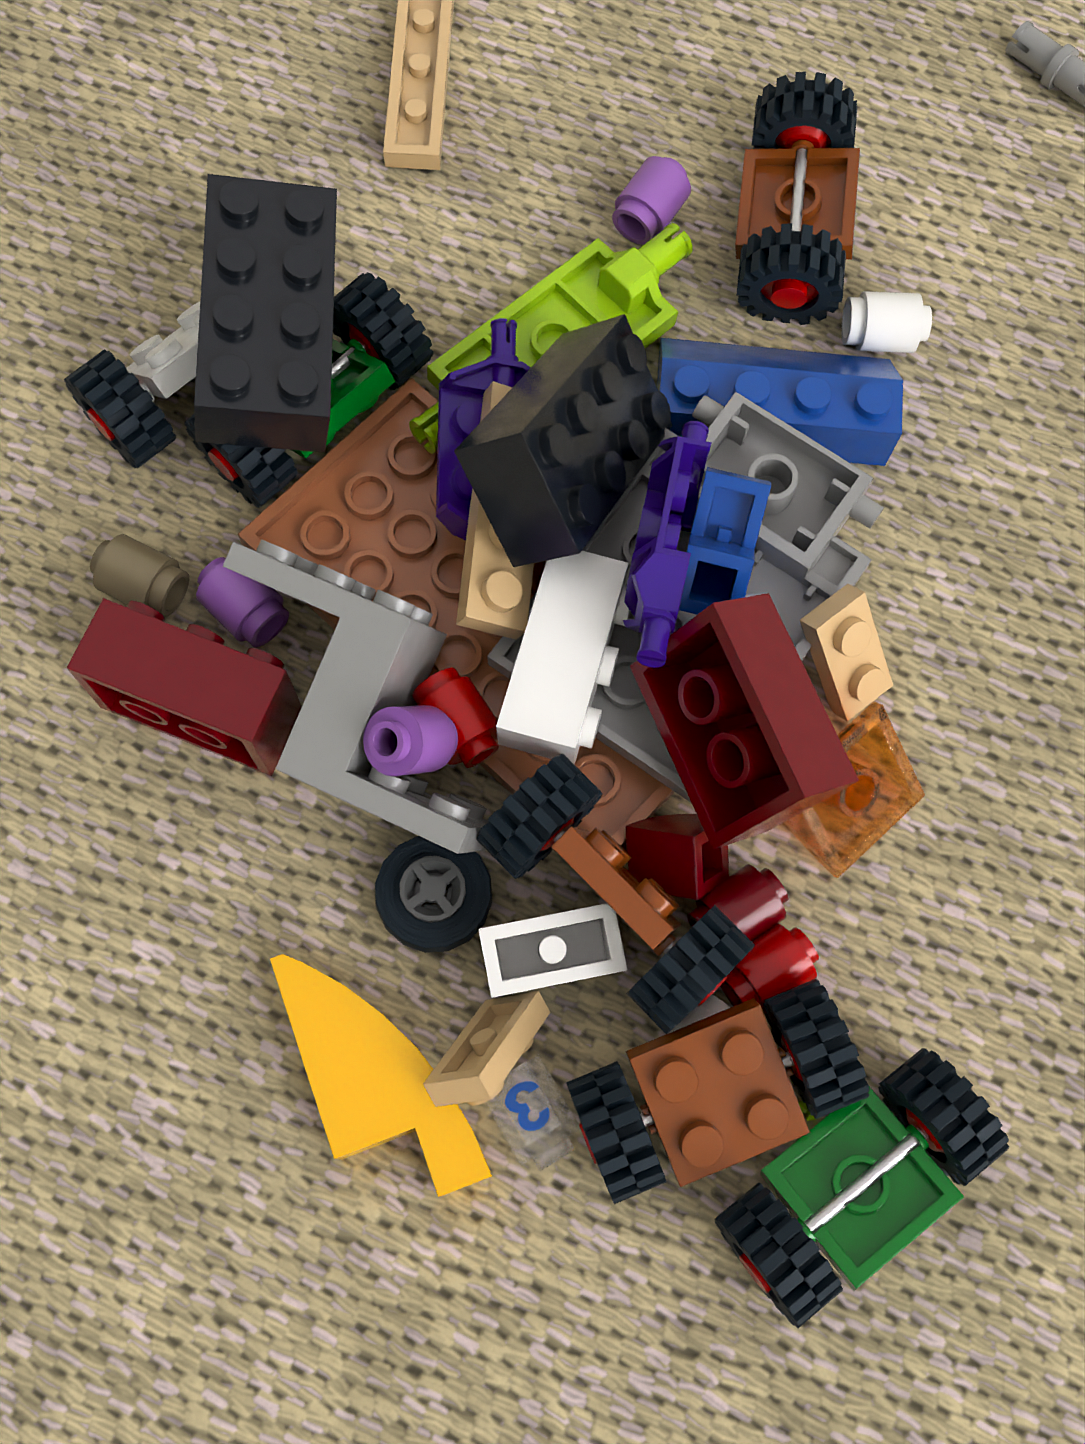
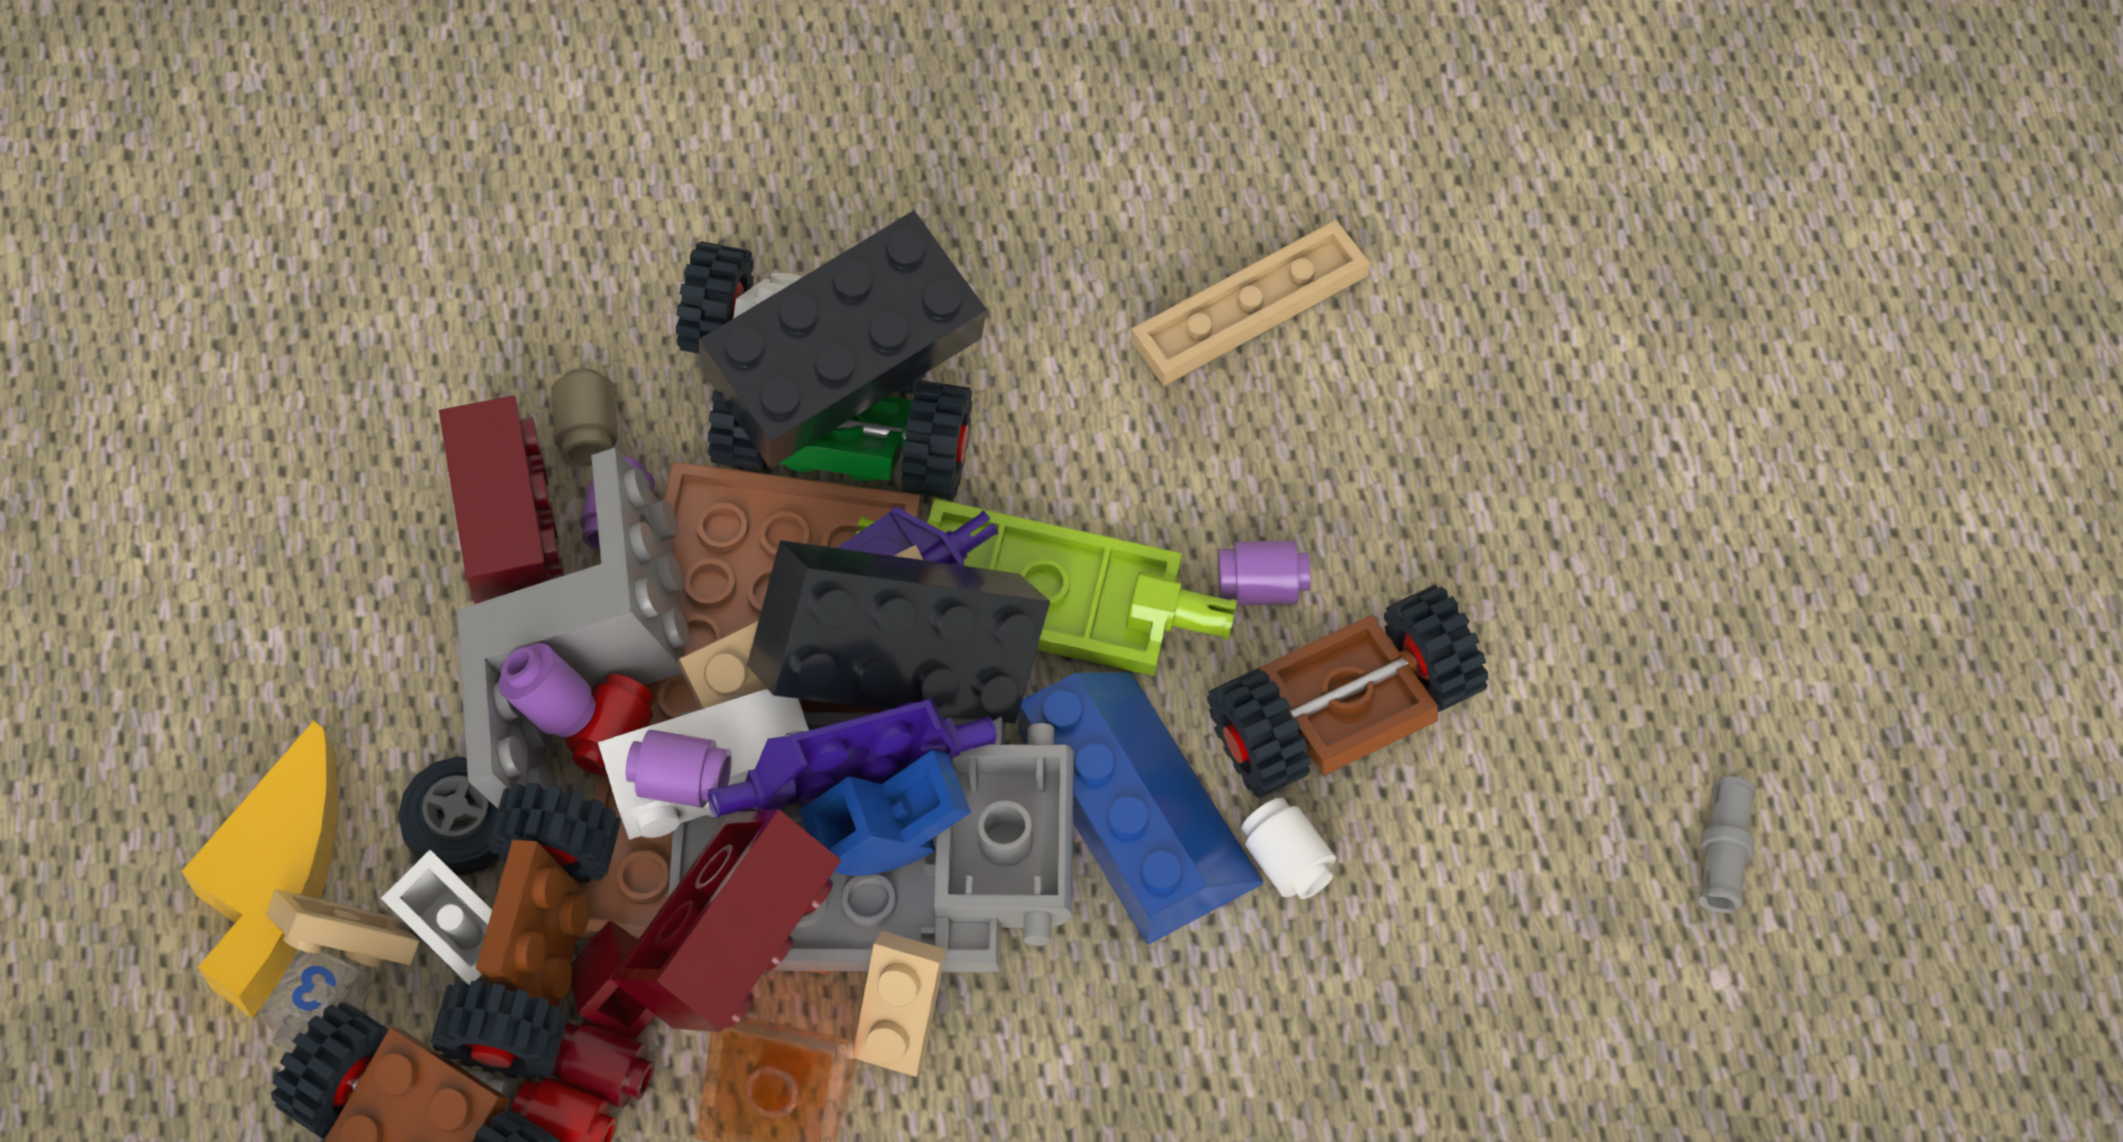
camera: 60 degrees right, 10 degrees down
(586, 670) = (677, 767): none -> medium lavender brick

